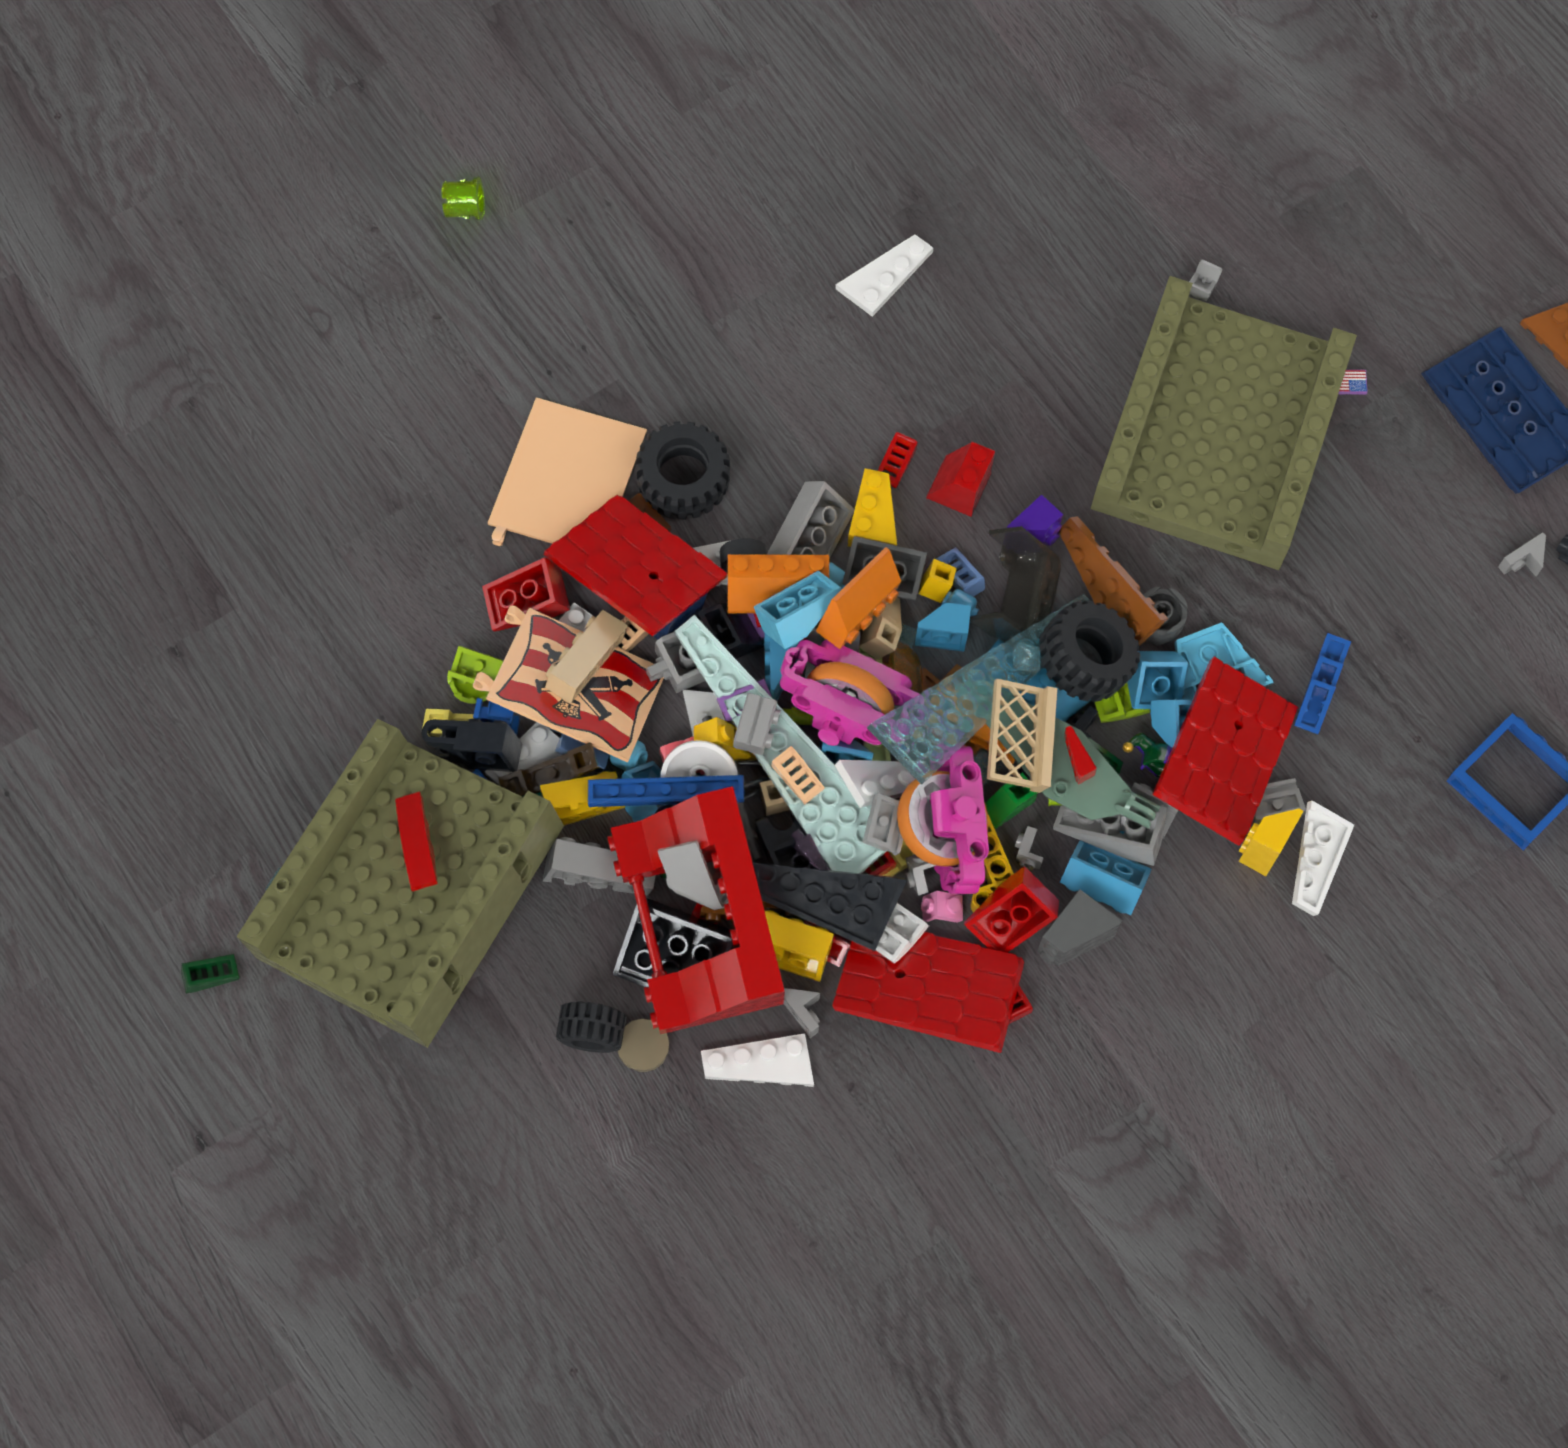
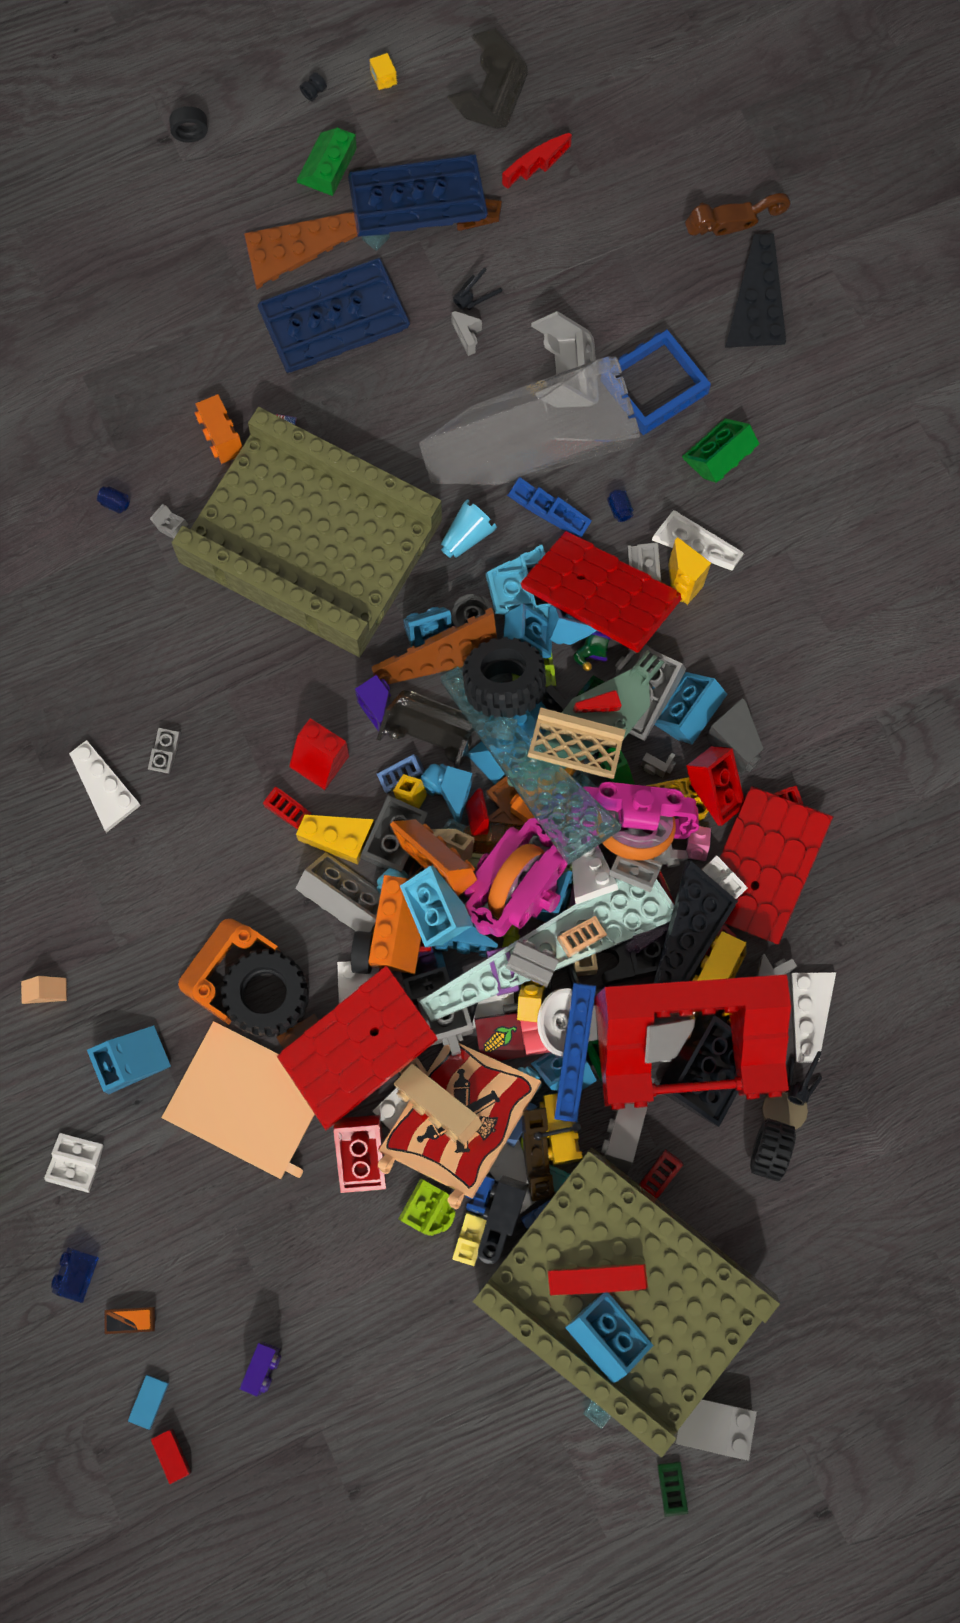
camera: 80 degrees left, 5 degrees up
(193, 469) = (171, 1456): none -> red slope
(244, 438) = (148, 1402): none -> dark azure tile
(278, 1013) = (719, 1429): none -> light grey slope
(287, 532) = (262, 1363): none -> dark purple piece
(323, 404) = (130, 1320): none -> slope
(358, 865) = (609, 1337): none -> dark azure slope
(362, 345) = (74, 1274): none -> clear blue bracket
(476, 323) = (74, 1162): none -> white slope
(562, 926) = (654, 1170): none -> red slope
(582, 804) = (576, 1127): none -> black hinge
(590, 350) = (128, 1059): none -> dark azure slope
(653, 261) = (44, 989): none -> light nougat slope
(663, 1053) = (799, 1092): none -> black plant
(674, 717) = (500, 1036): none -> dark red tile
(741, 427) = (195, 981): none -> orange windscreen
(926, 657) = (477, 814): none -> red slope
(938, 328) = (164, 750): none -> light grey slope
(1140, 562) = (426, 625): none -> dark azure slope
(1217, 221) = (113, 499): none -> clear blue brick
(1269, 593) = (466, 530): none -> medium azure cone
(1330, 309) = (218, 429): none -> orange wedge
(1344, 763) = (620, 505): none -> clear blue brick
(1412, 642) = (535, 428): none -> clear windscreen
(1447, 871) = (721, 449): none -> green slope
(1518, 687) = (567, 340): none -> light grey windscreen

